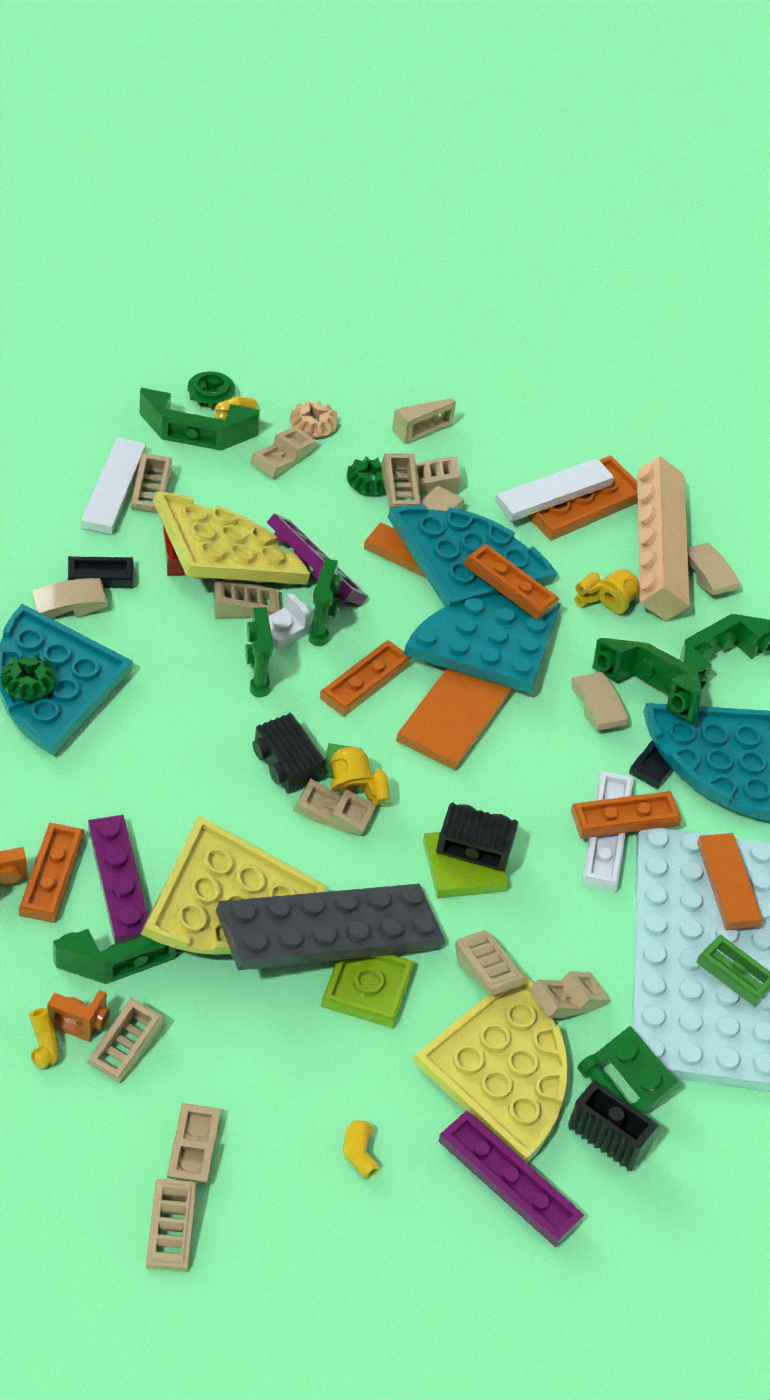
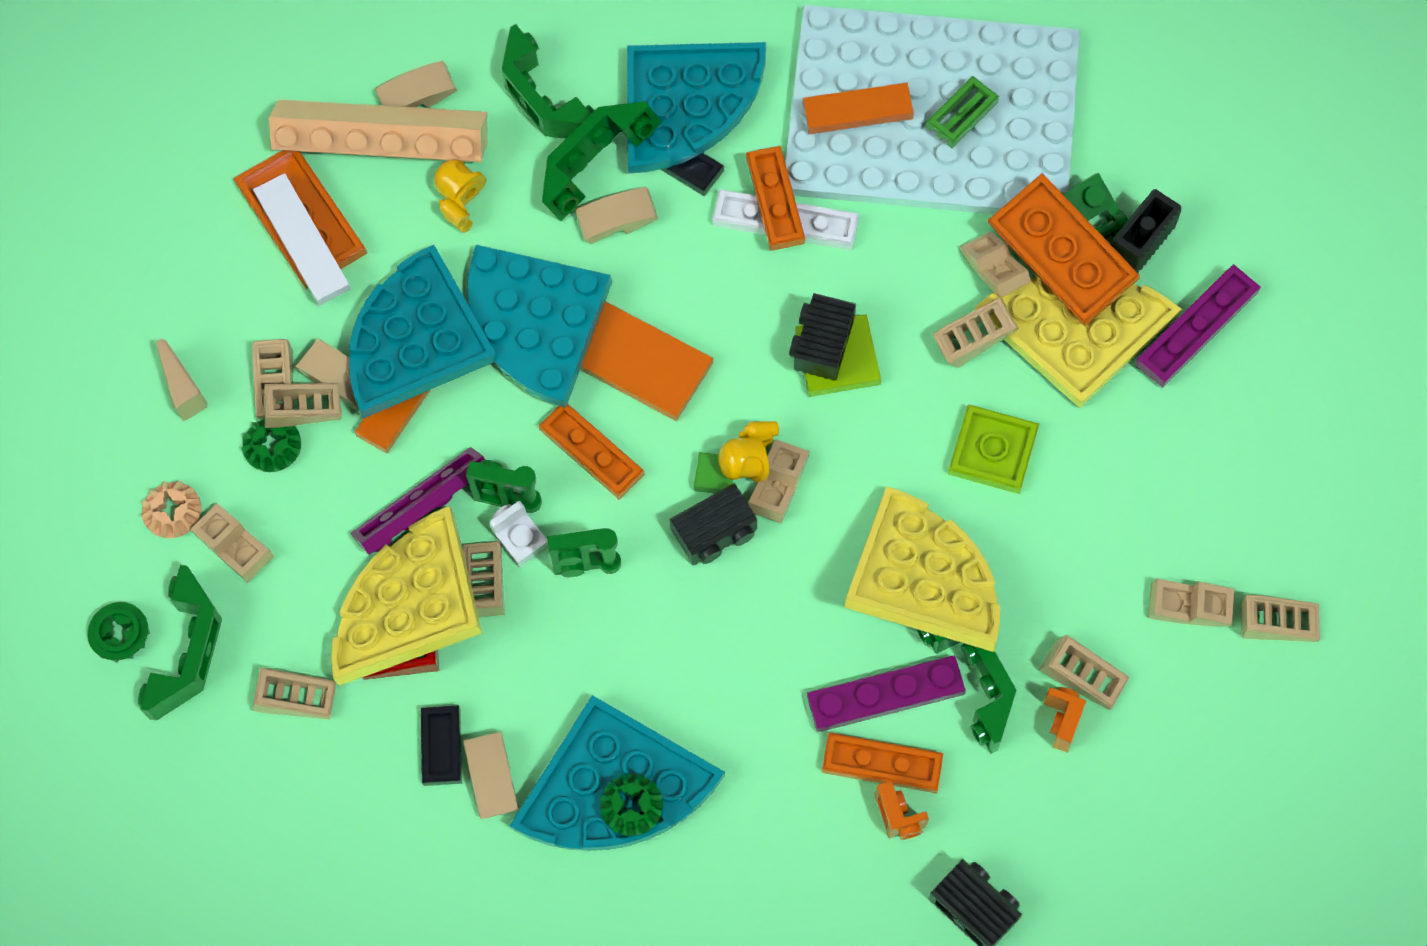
camera: 80 degrees left, 20 degrees up
(45, 1034) = (1095, 747): yellow arm -> none
(113, 486) = (293, 739): white tile -> none
(223, 407) = (157, 602): yellow arm -> none
(328, 926) = (949, 478): dark grey plate -> none
(355, 1148) = (1177, 458): yellow arm -> none
(511, 581) = (463, 288): orange tile -> none
(582, 1041) = (1063, 249): none -> orange tile

